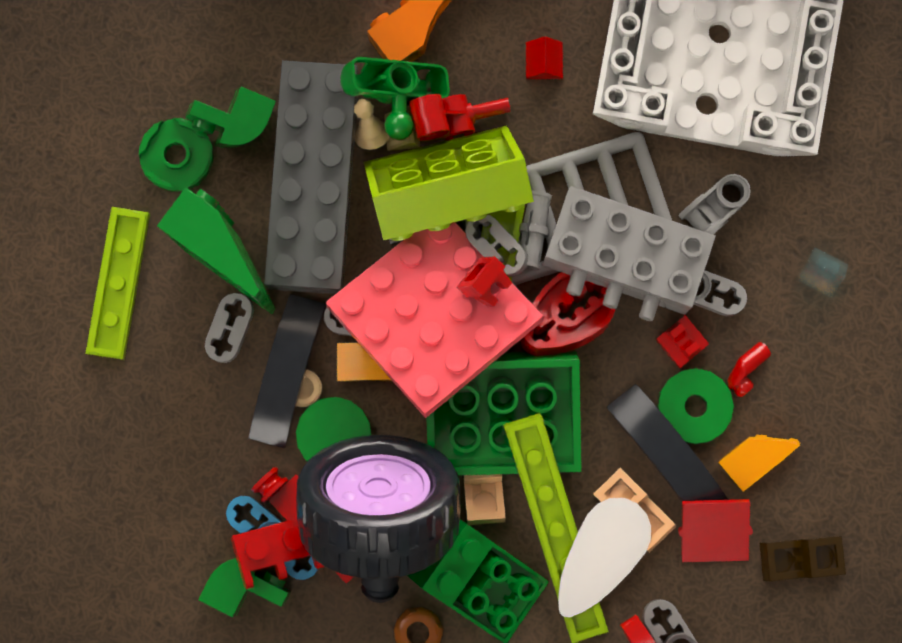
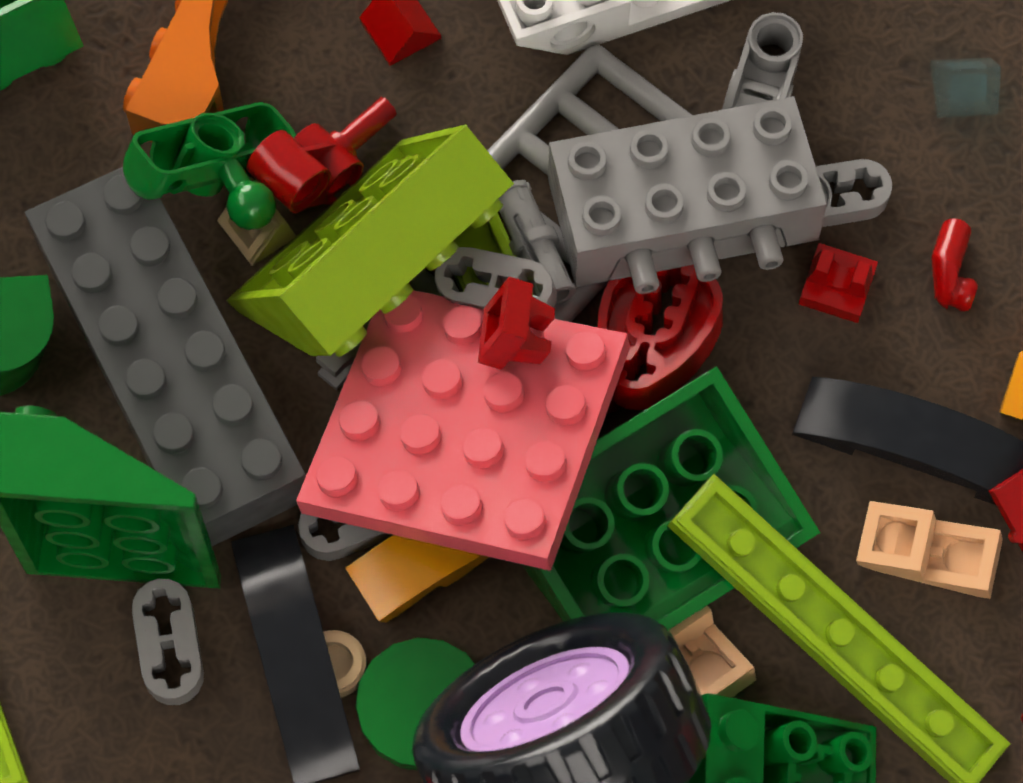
camera: 35 degrees left, 15 degrees down
(371, 130) = (211, 244): tan piece -> none
(603, 553) = (929, 630): white sticker -> none
(716, 398) = (922, 324): green tile -> none

